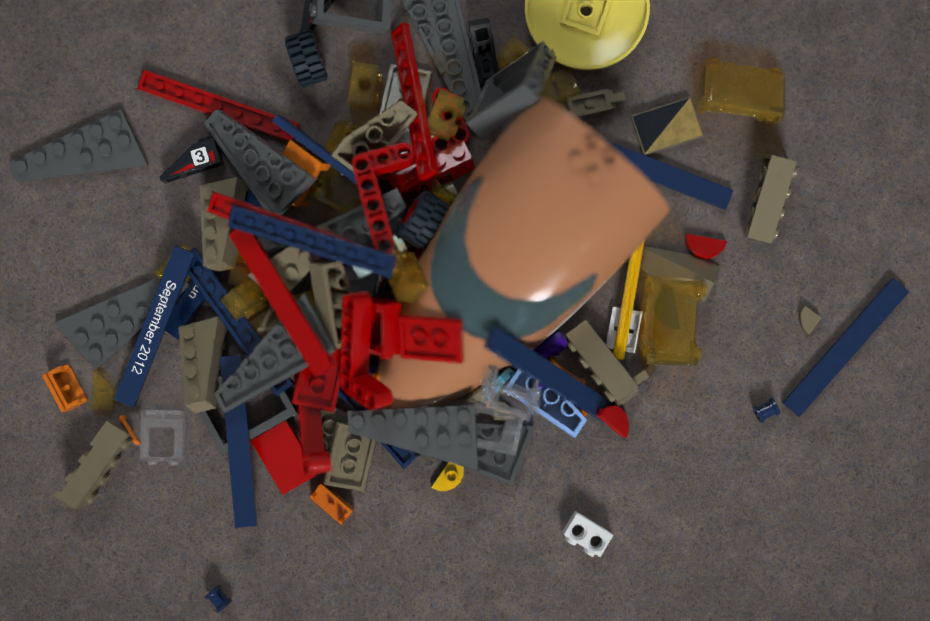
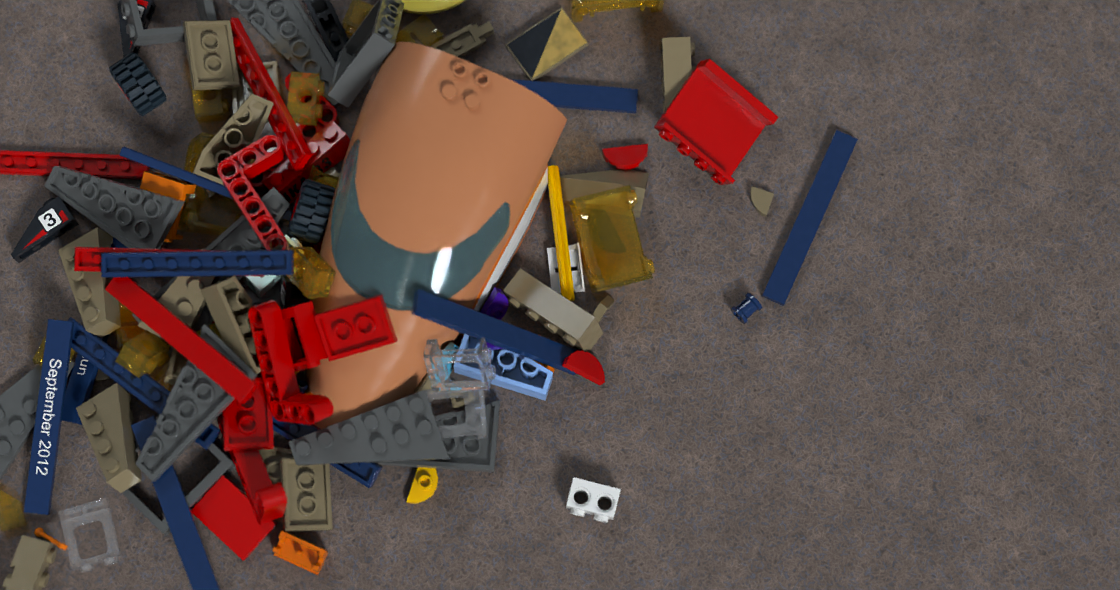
camera: 20 degrees left, 10 degrees down
(376, 51) = (211, 55): none -> dark tan tile
(791, 240) = (714, 121): none -> red panel

